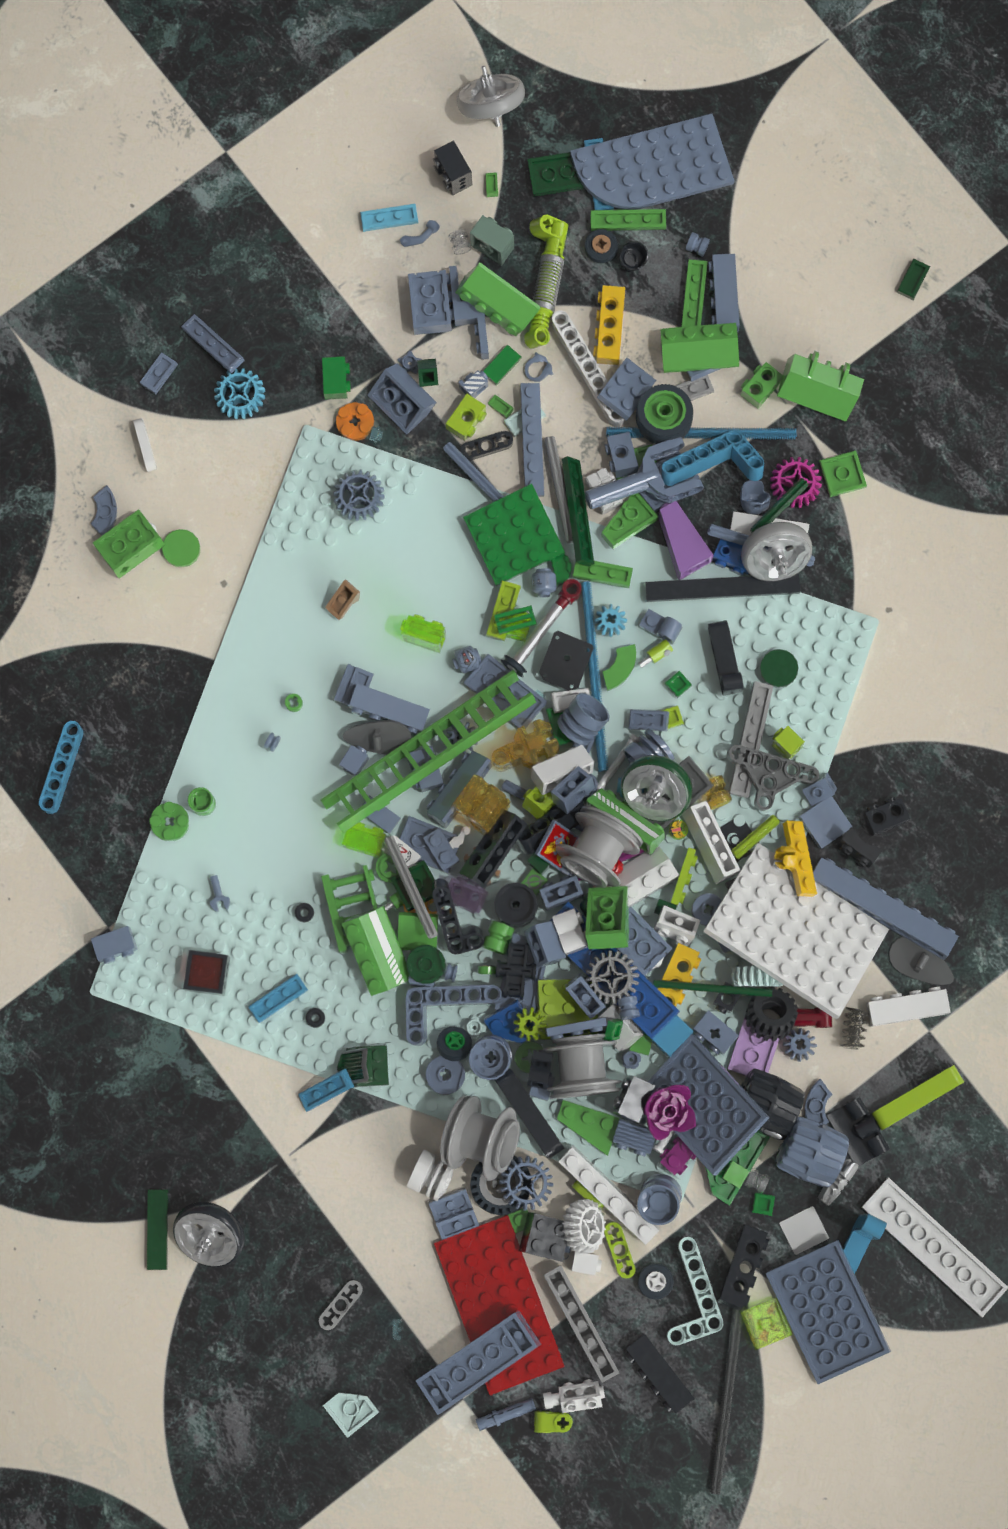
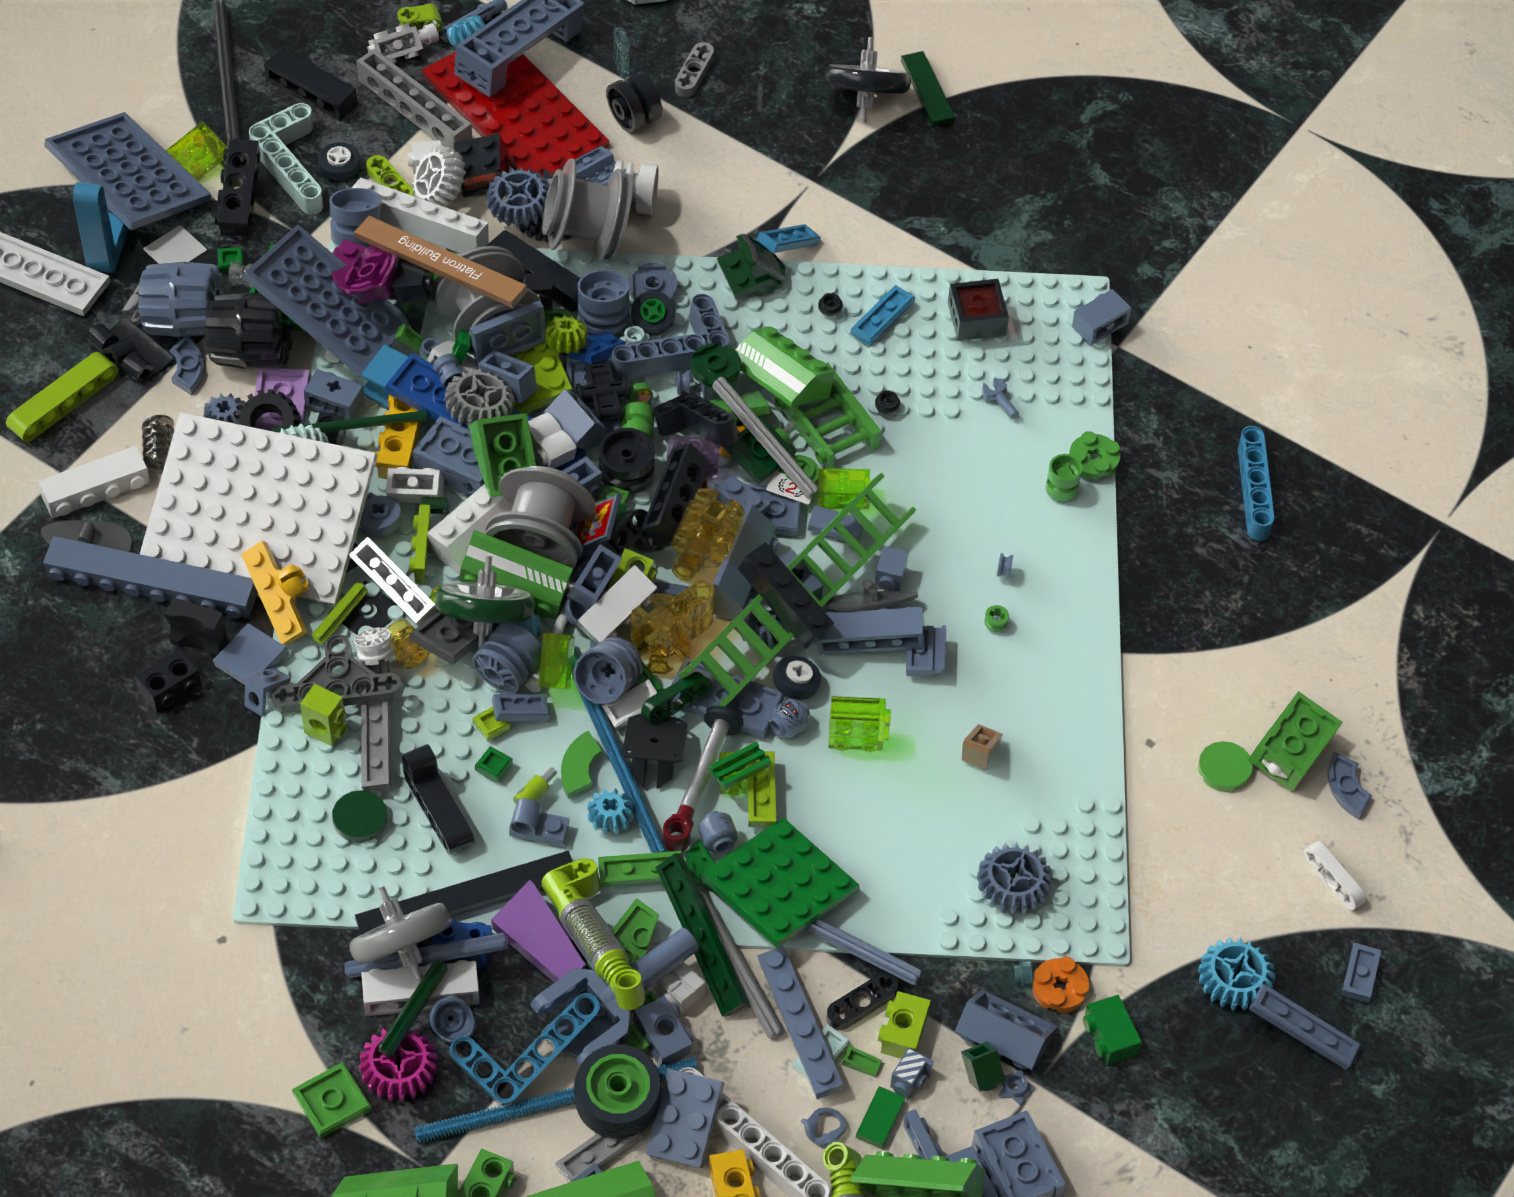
camera: 155 degrees right, 25 degrees down
(408, 1266) = (634, 101): none -> black wheel
(444, 731) = (785, 595): none -> black brick
(457, 693) = (797, 677): none -> black wheel
(518, 1388) = (464, 29): none -> medium azure gear
(544, 688) = (691, 690): none -> dark green beam
(614, 1089) = (441, 261): none -> medium nougat tile
(616, 741) = (556, 661): none -> clear neon green brick
(645, 1072) = (409, 337): none -> bright green piece
(652, 521) = (568, 890): none -> lime piece
(740, 785) = (374, 645): none -> white wheel

